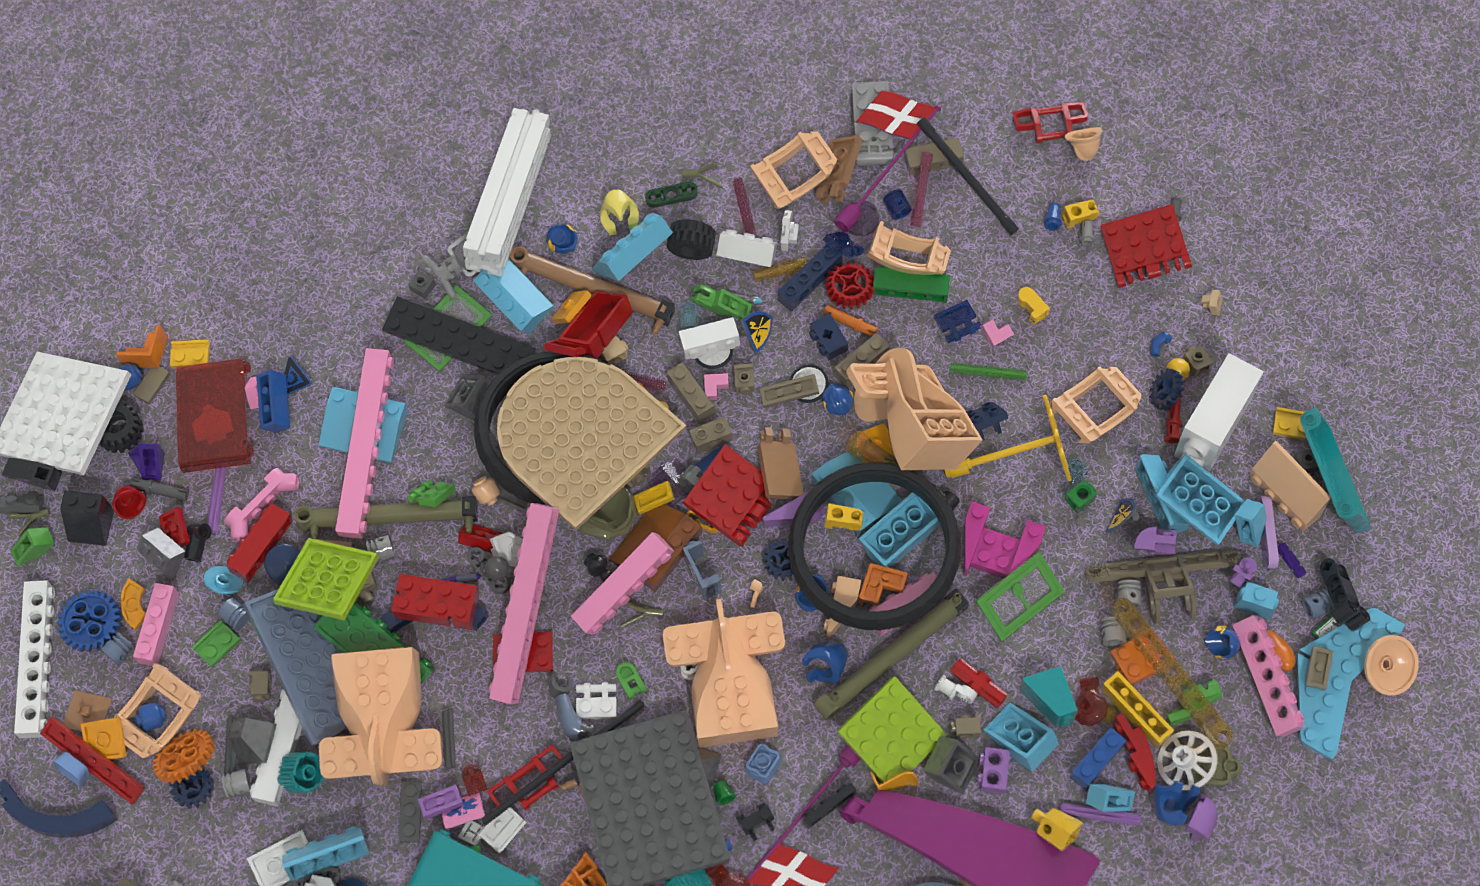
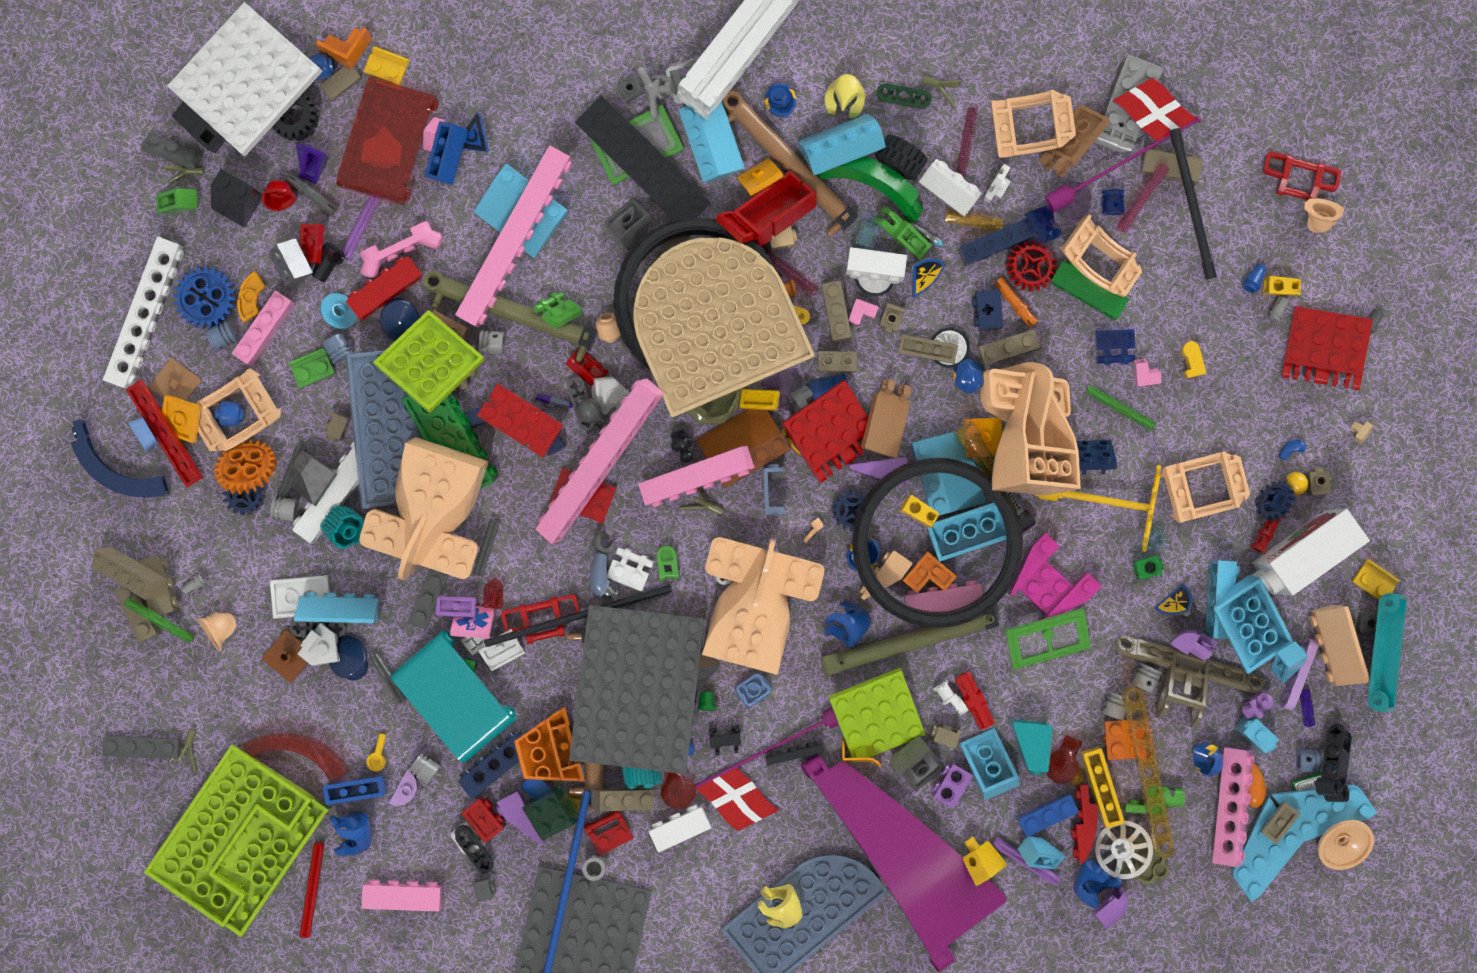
camera: 15 degrees right, 20 degrees up
(679, 261) = (884, 180): none -> green arch

